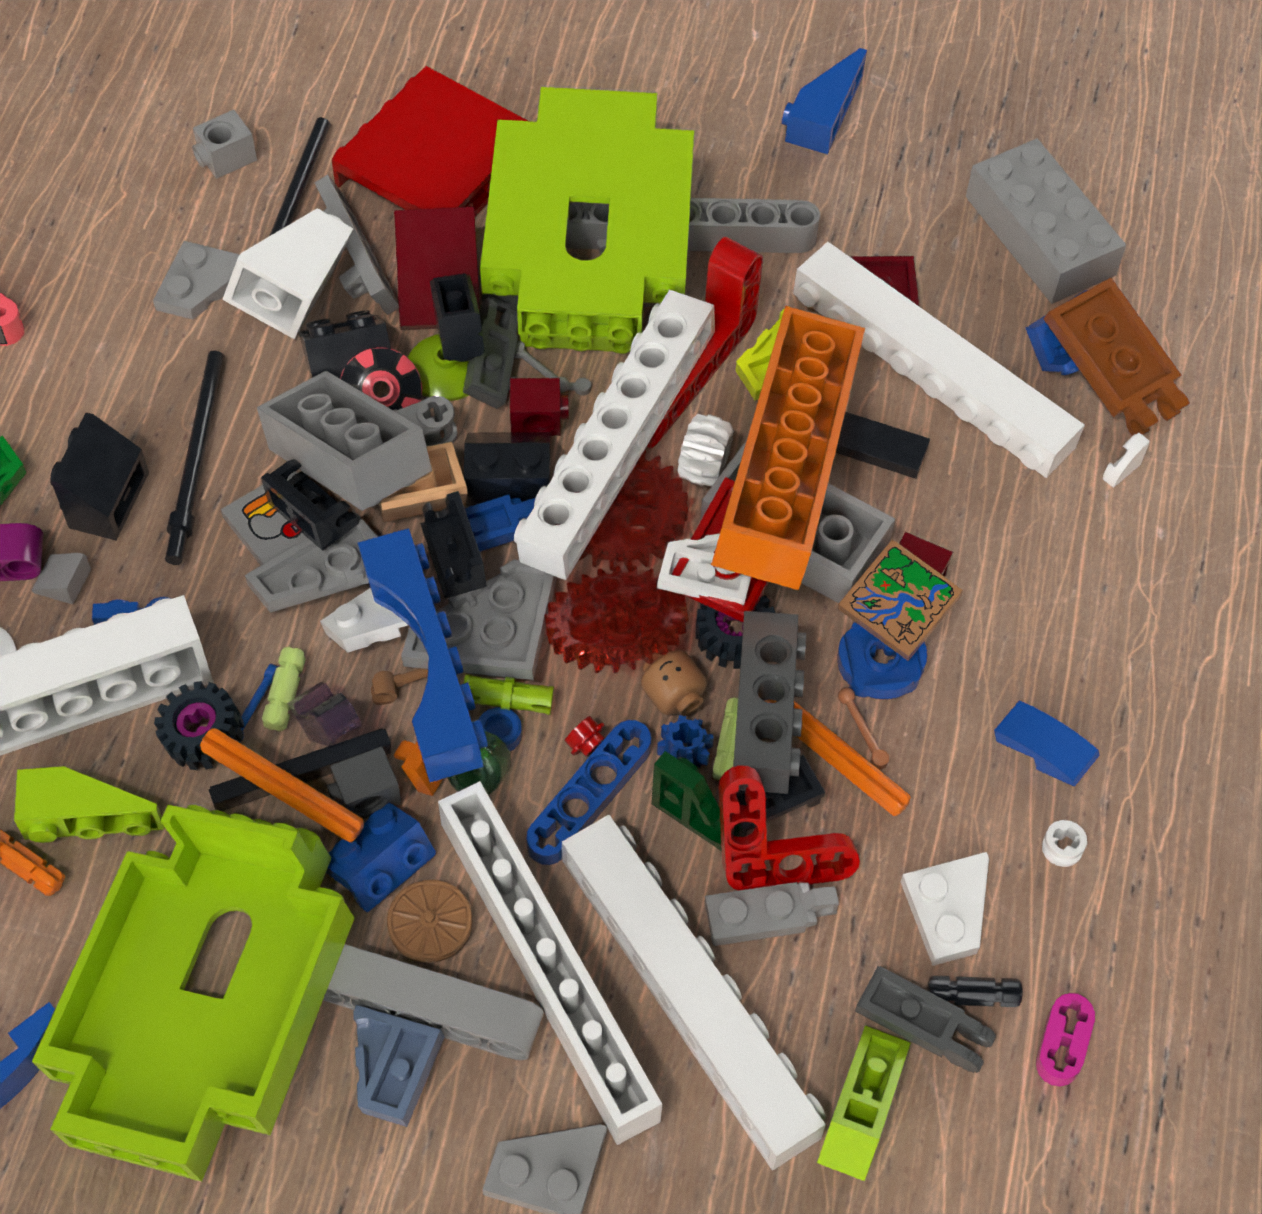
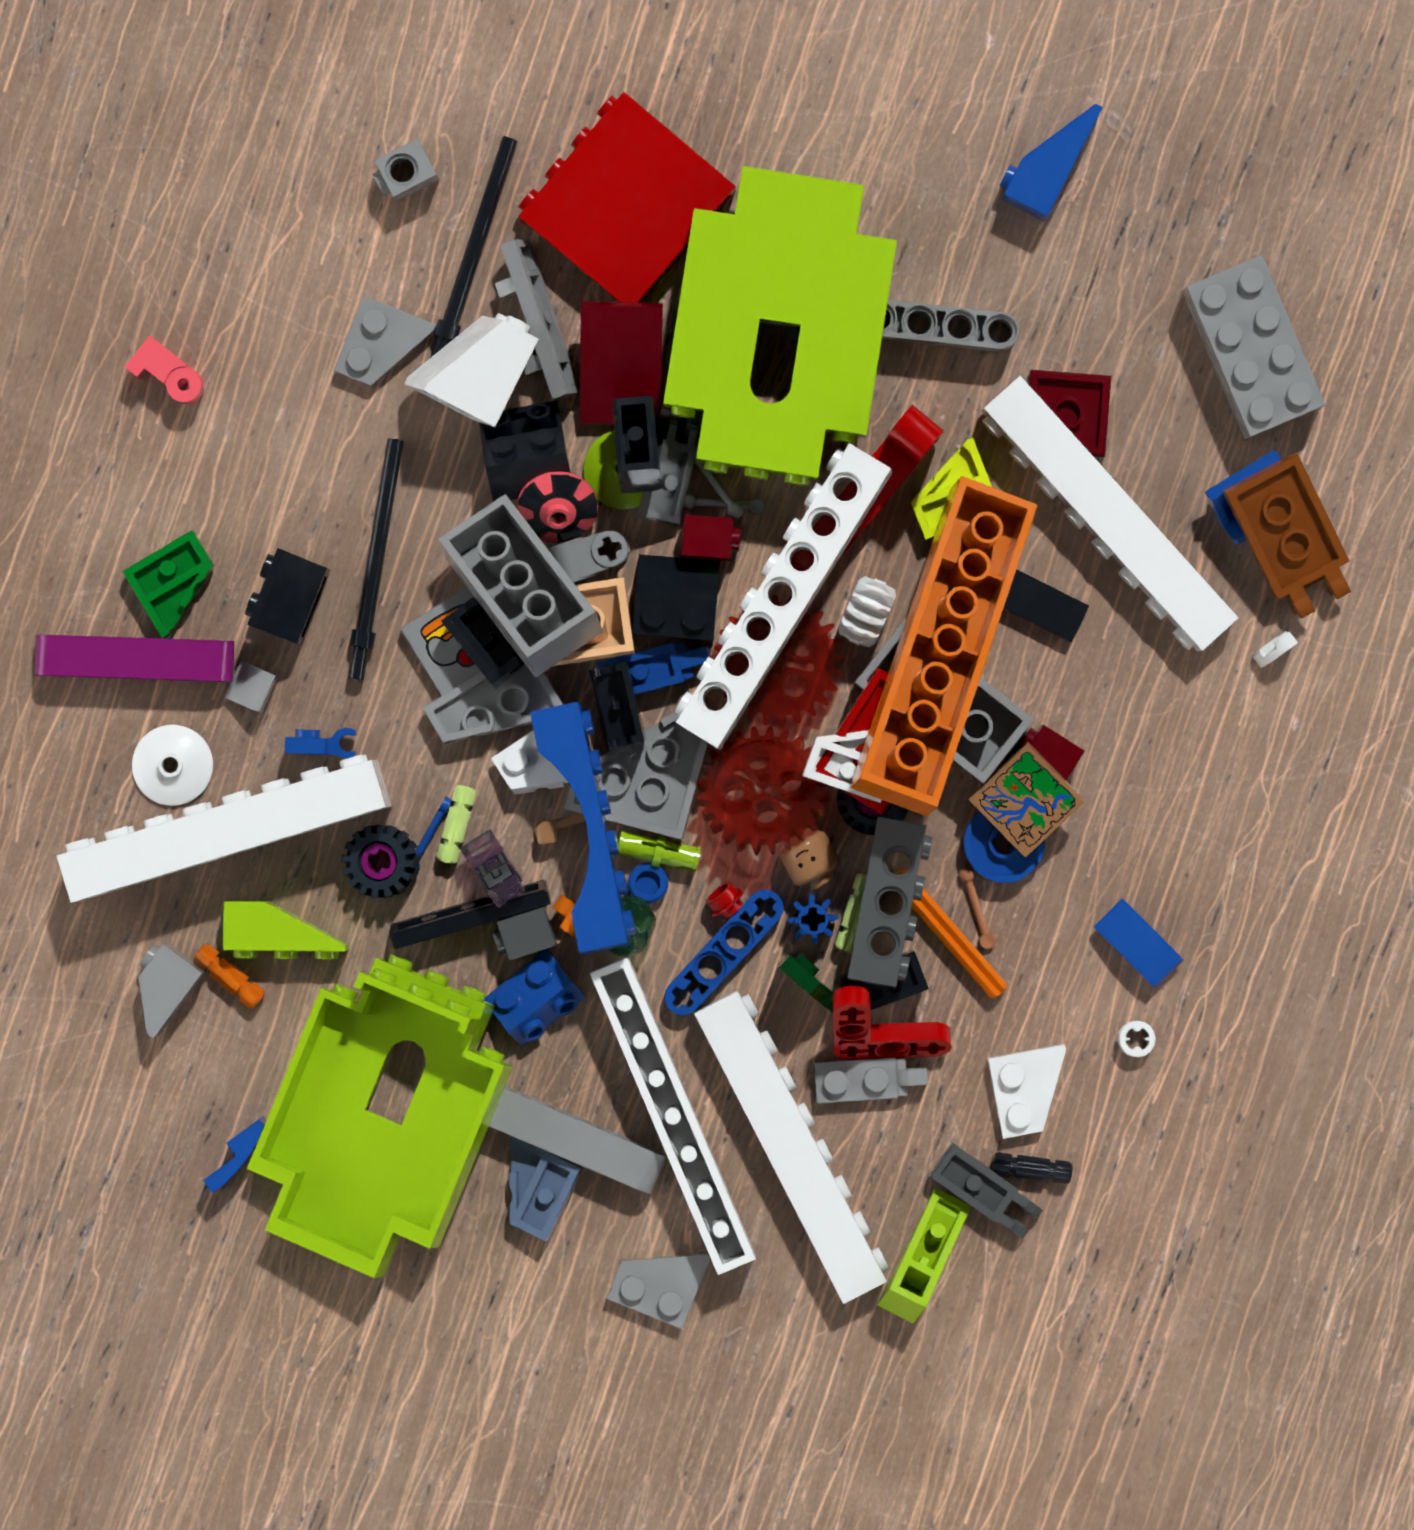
camera: 10 degrees right, 30 degrees up
(282, 785) = (454, 942): orange axle -> none
(429, 921) = (576, 1061): medium nougat wheel -> none
(1076, 1042) = (1109, 1221): dark pink beam -> none

